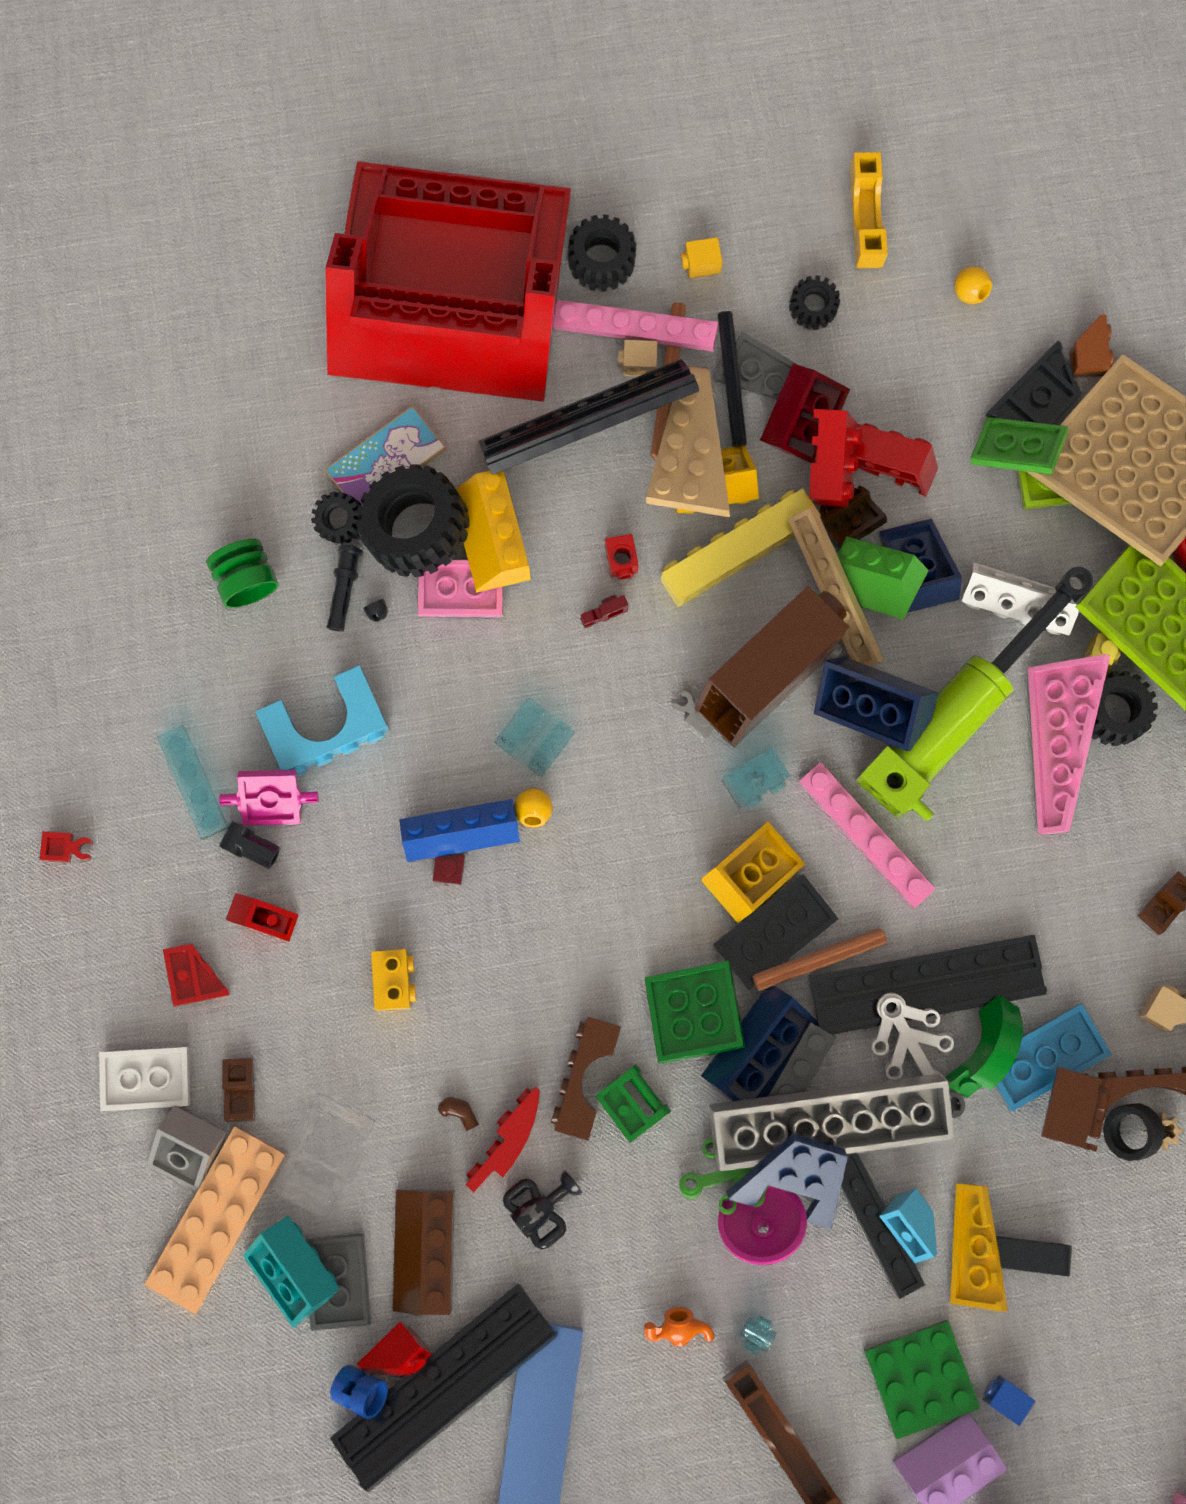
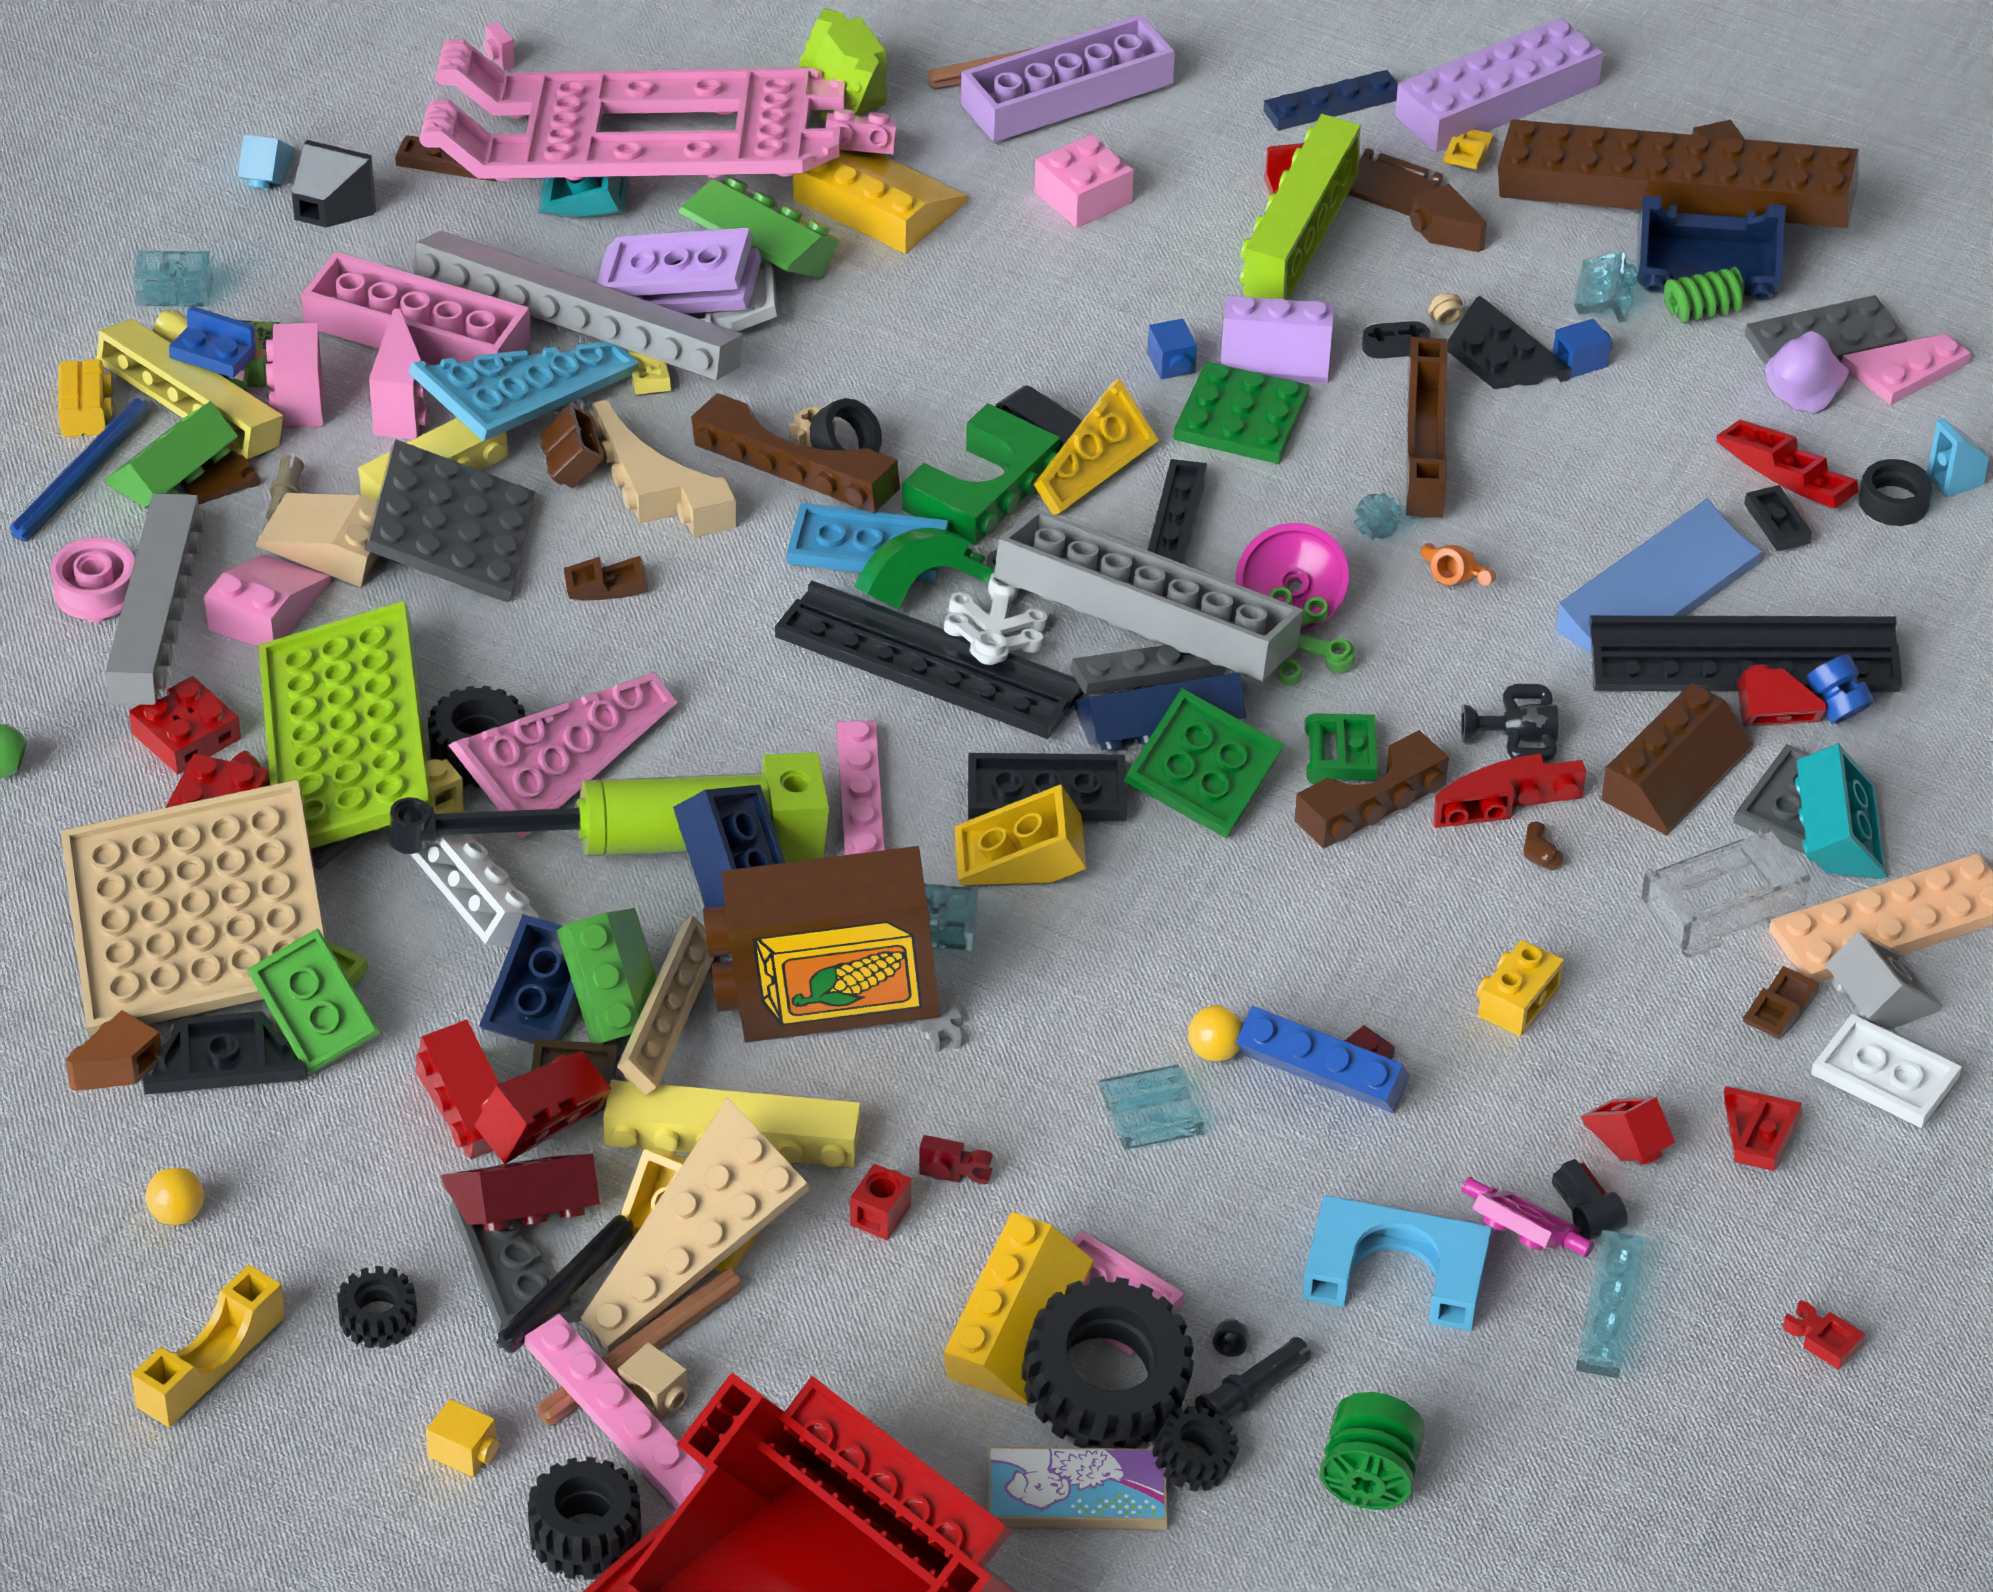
camera: 140 degrees left, 35 degrees down
(588, 416) = (786, 1337): black plate -> none
(801, 1168) = (1230, 569): wing -> none
(819, 959) = (1023, 734): nougat axle -> none
(912, 1224) = (1138, 499): medium azure slope -> none
(1011, 1214) = (978, 507): none -> green arch
(1075, 1109) = (889, 460): reddish brown piece -> none

